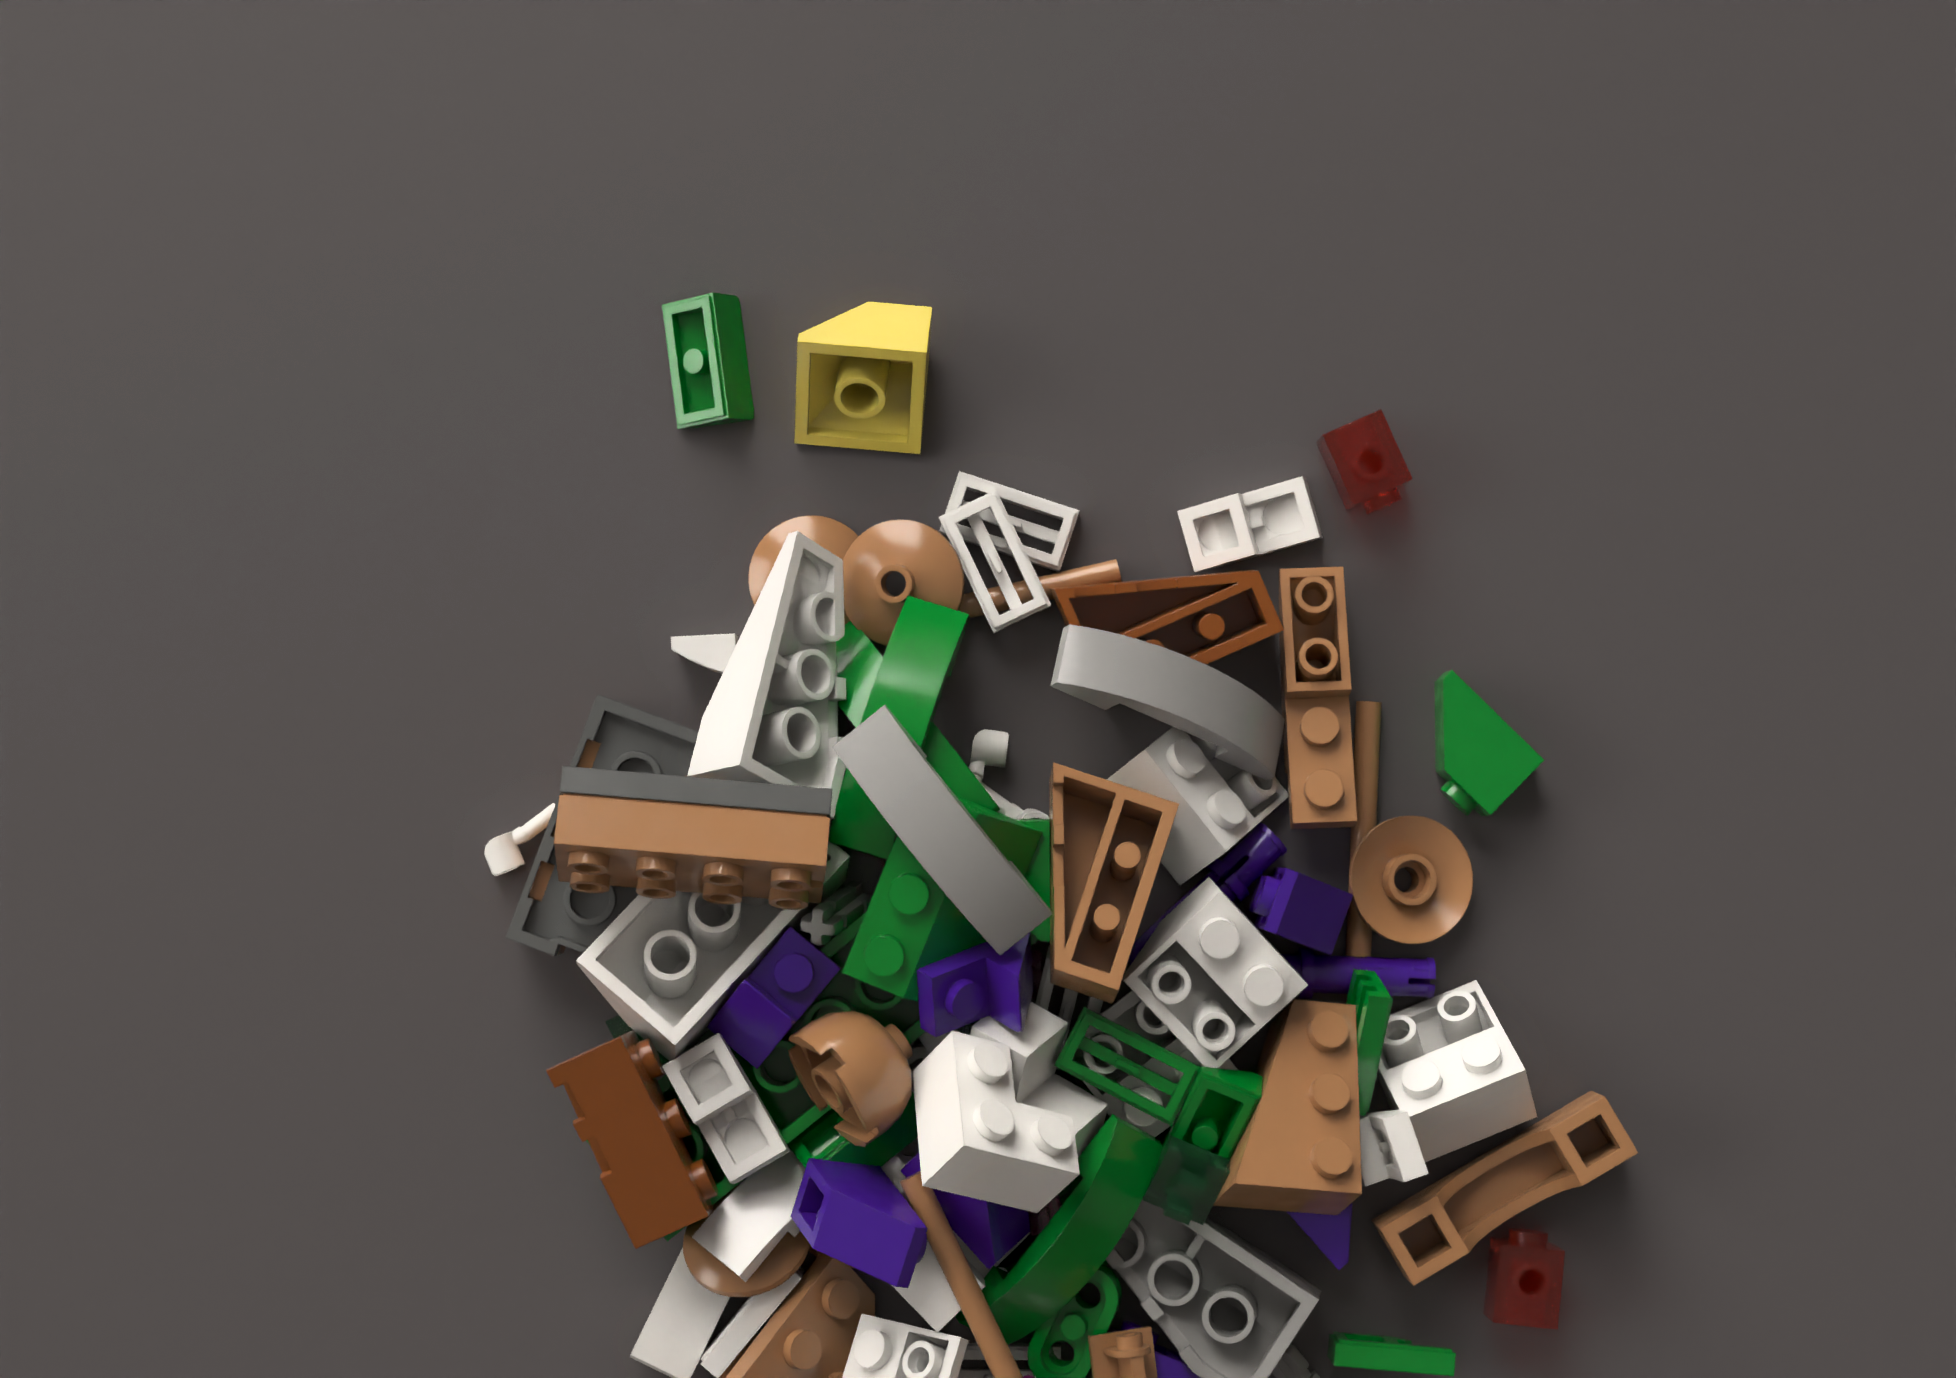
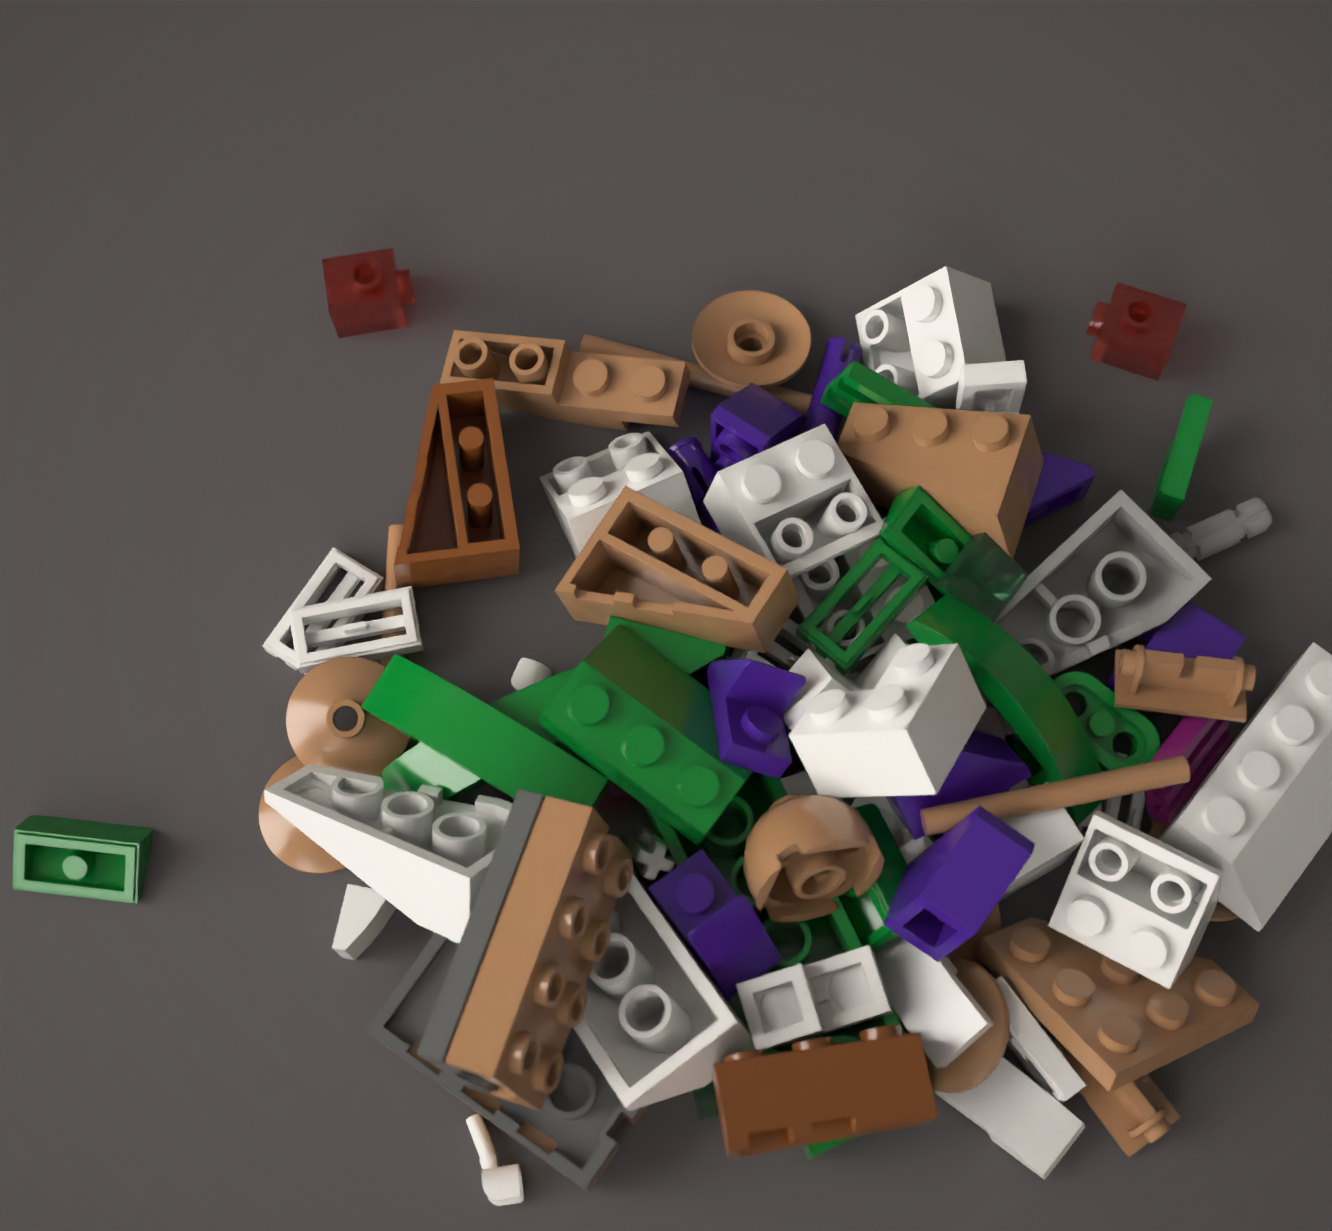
camera: 75 degrees left, 15 degrees down
(864, 379) = (148, 706): light yellow slope -> none
(941, 831) = (586, 697): light grey slope -> none
(1173, 689) = (484, 517): light grey slope -> none
(1250, 524) = (392, 403): white slope -> none
(1476, 749) = (646, 260): green slope -> none
(1527, 1168) = (1063, 374): medium nougat arch -> none

